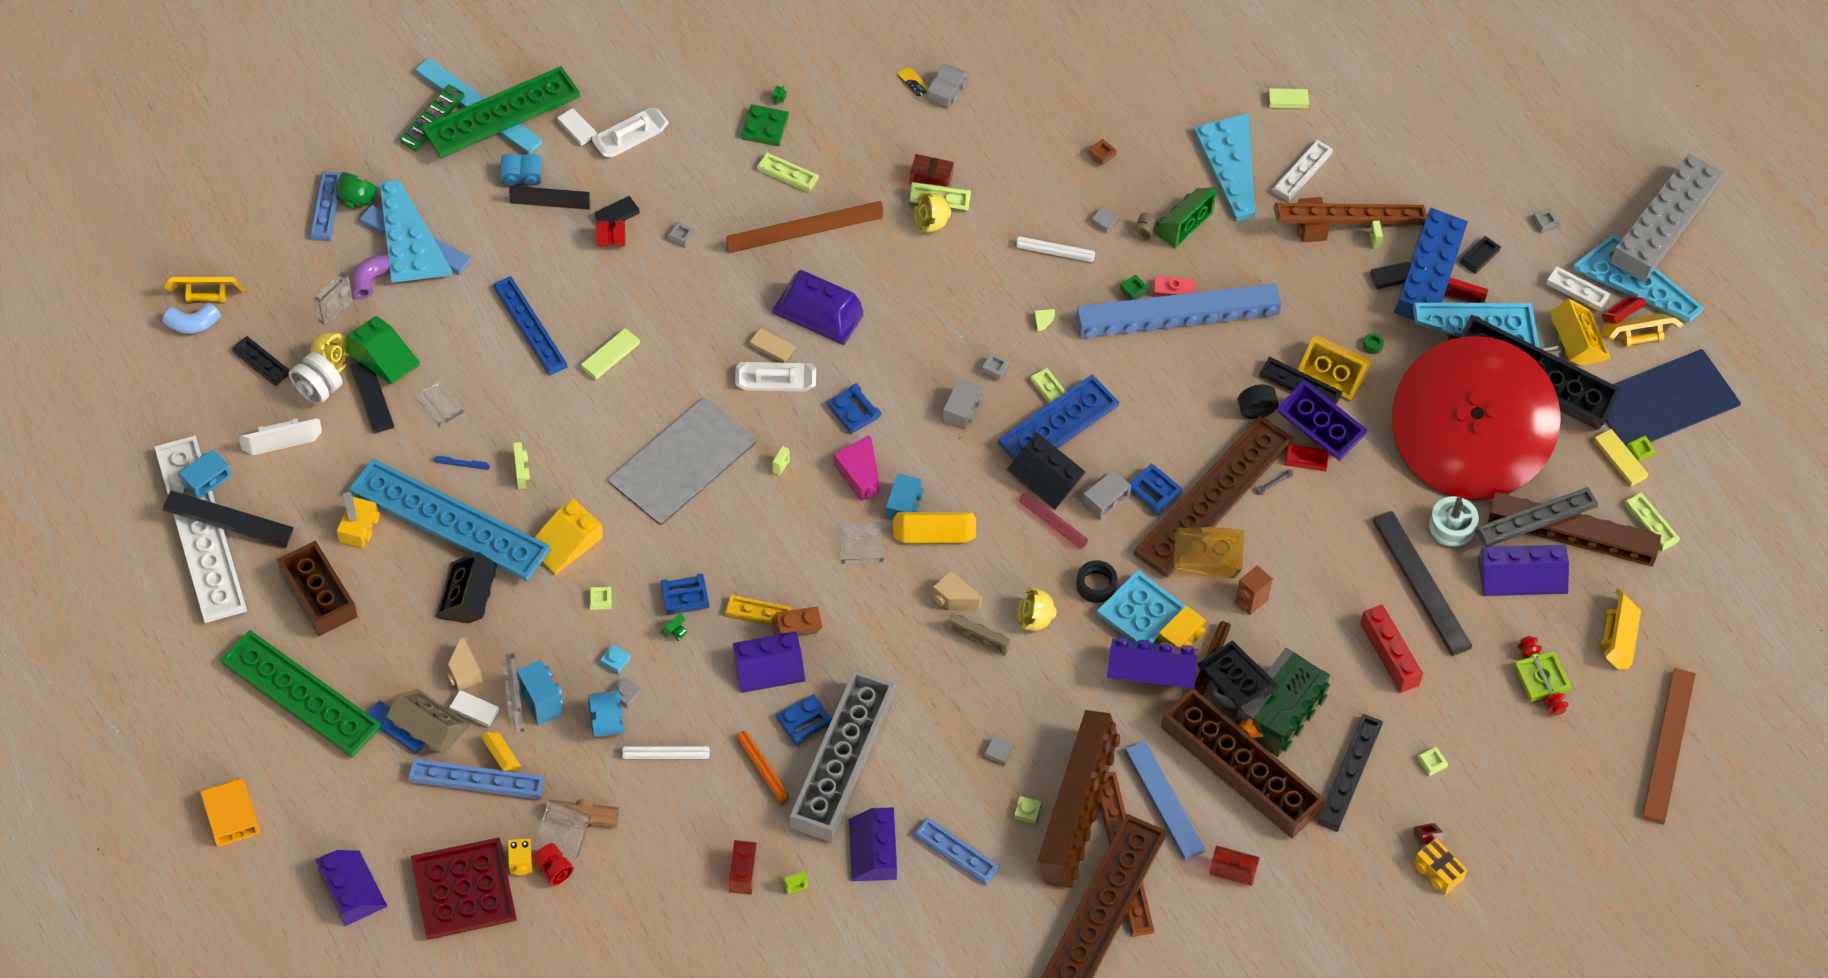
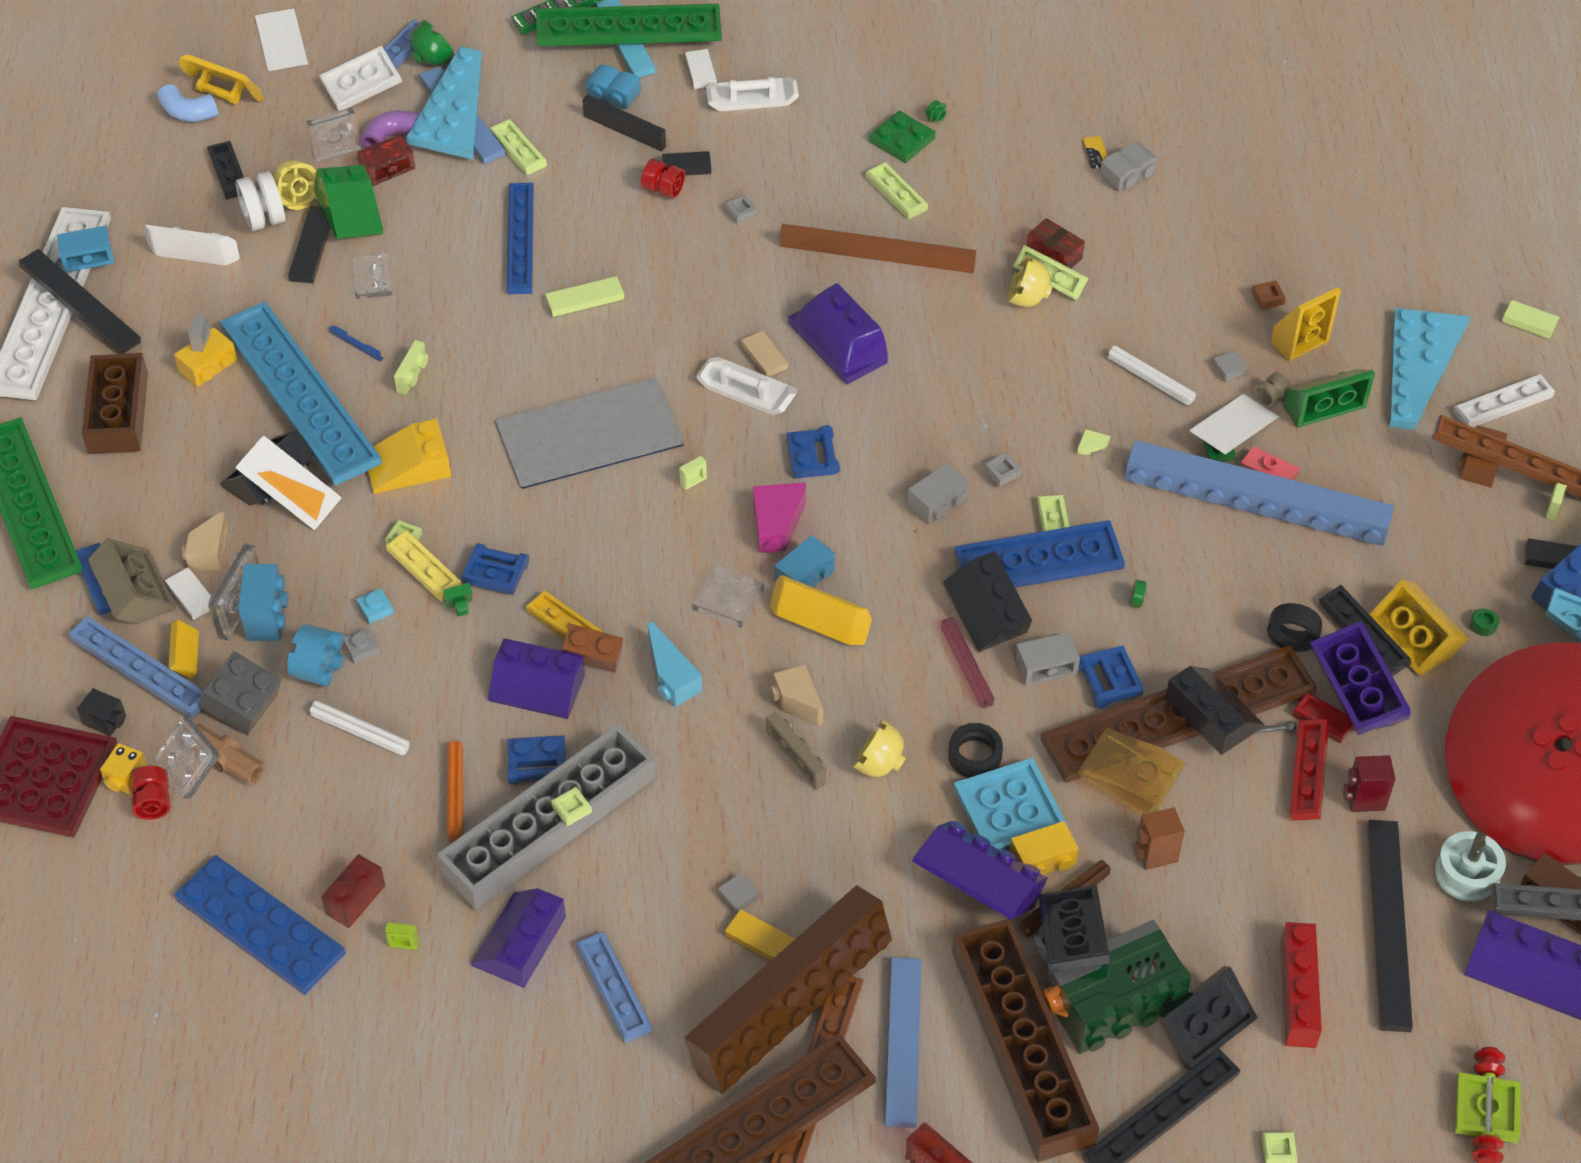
camera: 30 degrees right, 5 degrees down
(223, 230) = (281, 39): none -> white sticker
(316, 241) = (360, 78): none -> white tile
(385, 301) = (387, 159): none -> clear red brick
(475, 823) = (101, 712): none -> black brick
(478, 250) = (518, 147): none -> yellowish green tile
(495, 594) = (288, 482): none -> white sticker
(569, 765) = (240, 693): none -> dark grey brick
(632, 614) = (422, 564): none -> light yellow tile
(689, 919) = (260, 924): none -> blue plate
(860, 615) = (675, 674): none -> medium azure slope
(861, 741) = (571, 806): none -> yellowish green tile
(1027, 810) = (728, 977): yellowish green plate -> none
(1035, 774) = (757, 935): none -> yellow tile
(1134, 264) = (1234, 423): none -> white sticker
(1139, 420) = (1138, 593): none -> green tile
(1144, 168) = (1306, 326): none -> yellow slope
(1236, 484) = (1211, 708): none -> black slope
(1318, 499) = (1309, 770): none -> red plate
(1347, 696) = (1207, 1017): none -> black plate
(1365, 492) = (1370, 783): none -> dark red brick

